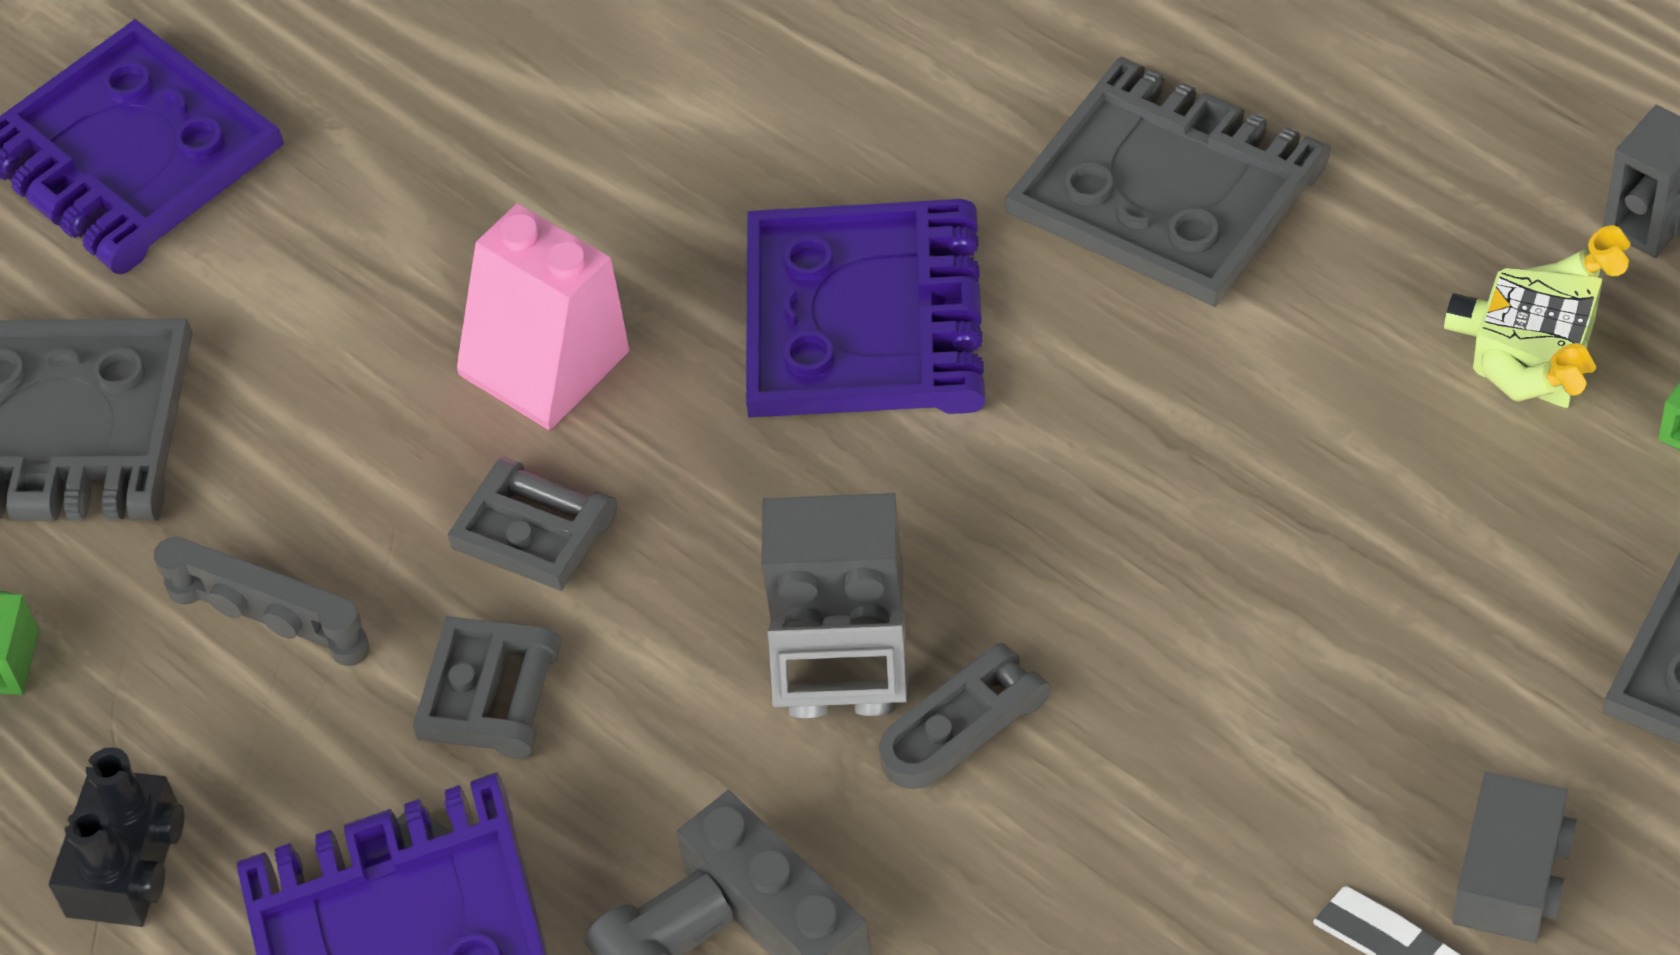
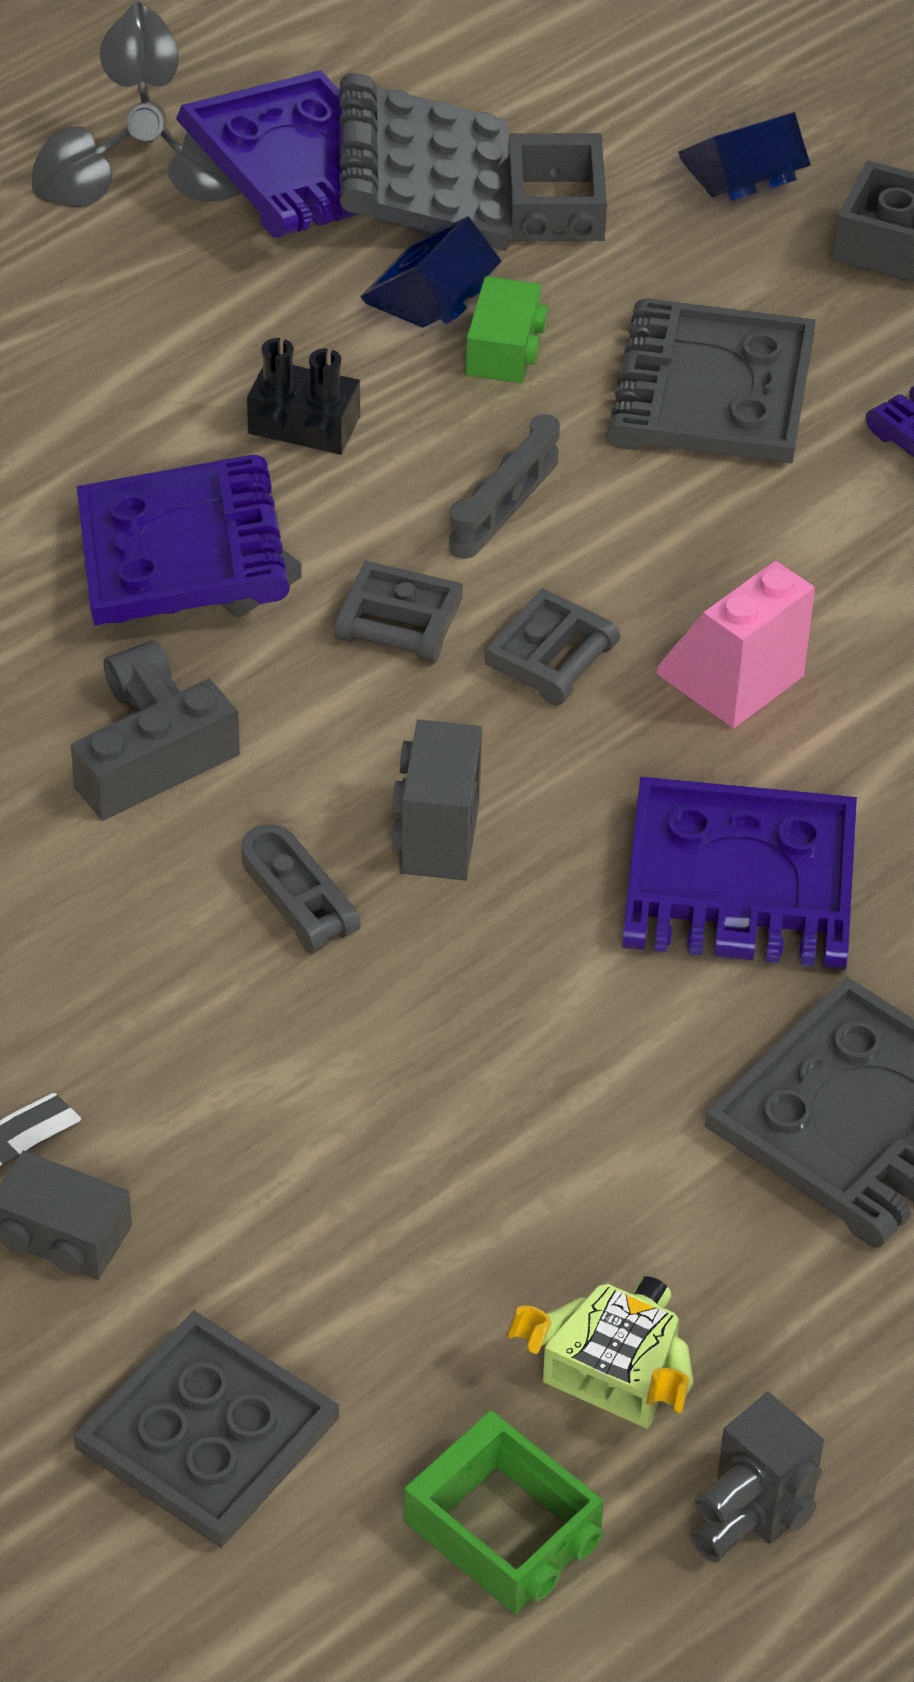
camera: 90 degrees right, 5 degrees down
(838, 640) = (347, 780): light grey window -> none

